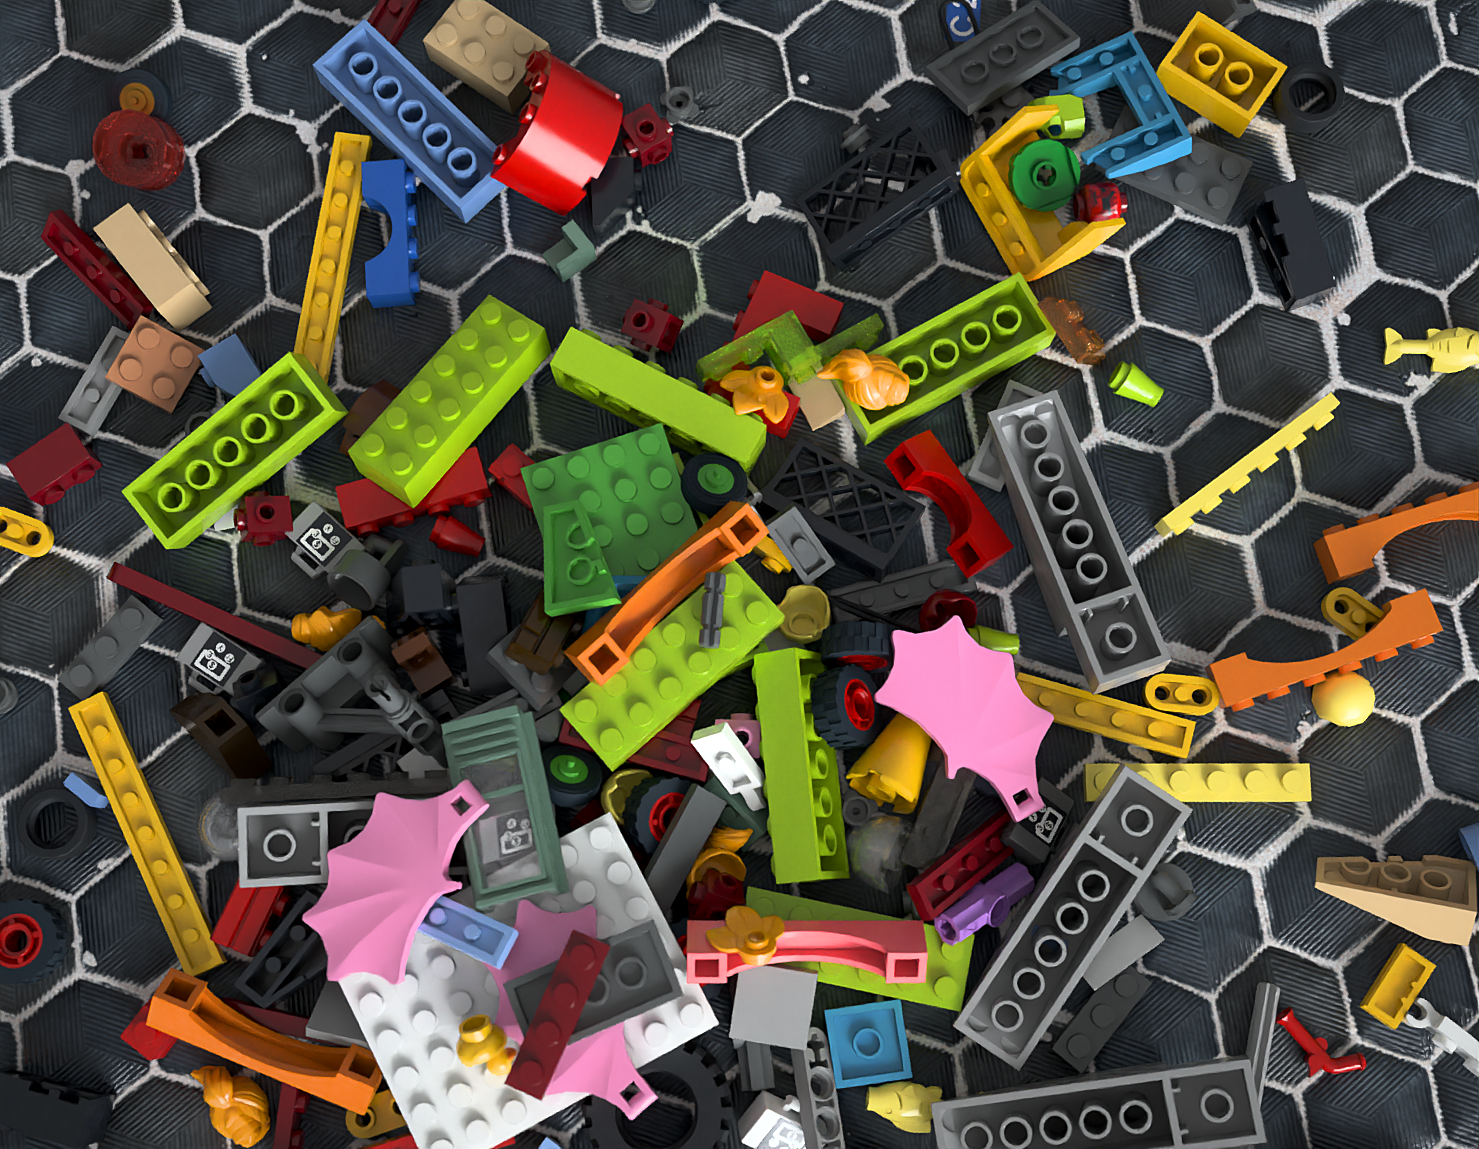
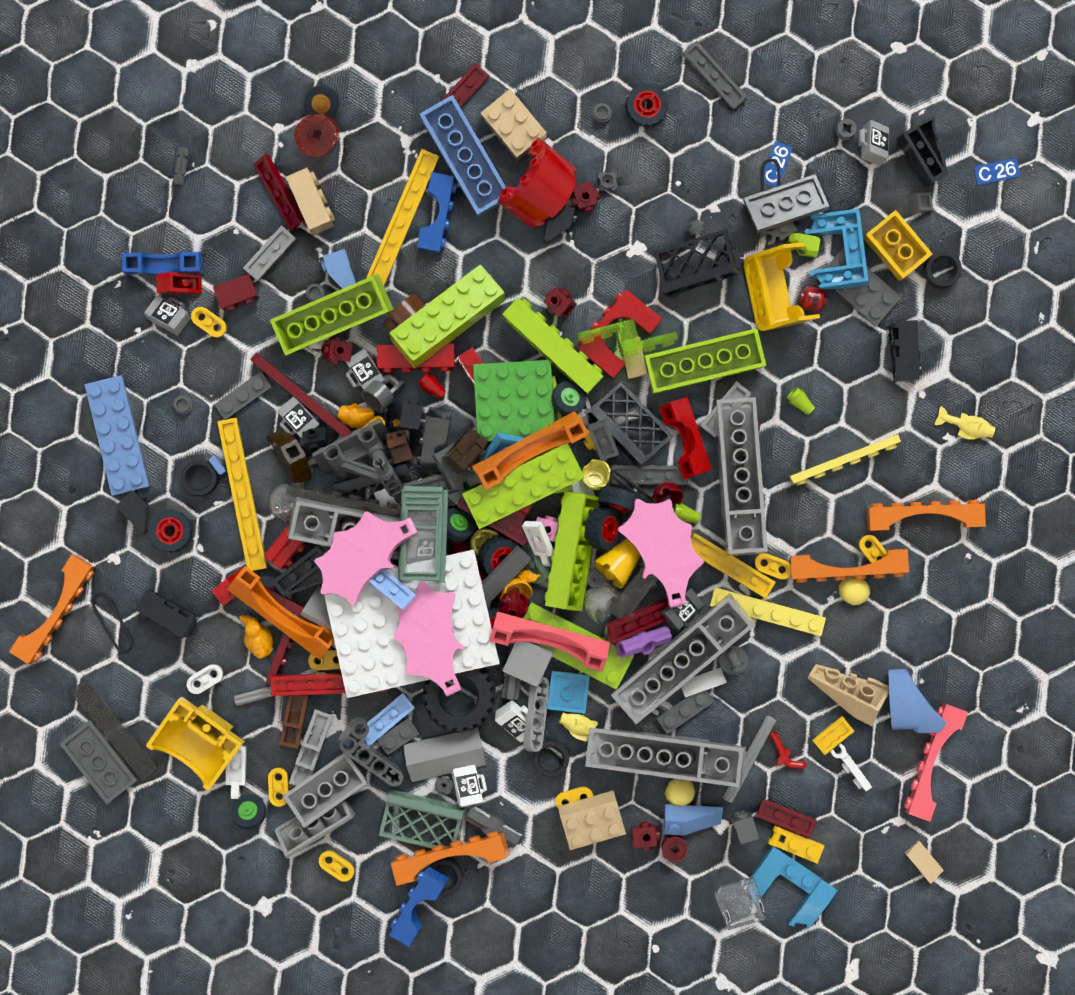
camera: 15 degrees right, 10 degrees up
(155, 364) = (299, 252): nougat plate -> none
(486, 1043) = (387, 643): yellow animal -> none
(557, 1015) = (425, 639): dark red plate -> none
(570, 253) = (527, 249): sand green panel -> none
(573, 562) = (488, 423): bright green wing -> none
(631, 982) = (445, 632): dark grey plate -> none
(712, 610) = (549, 466): dark grey axle -> none
(748, 935) = (524, 626): light orange plate -> none
(757, 390) = (602, 357): light orange plate -> none
(868, 379) = (662, 365): light orange hair -> none
(1060, 185) = (780, 268): green plate -> none
(1067, 322) = (775, 365): clear orange plate -> none

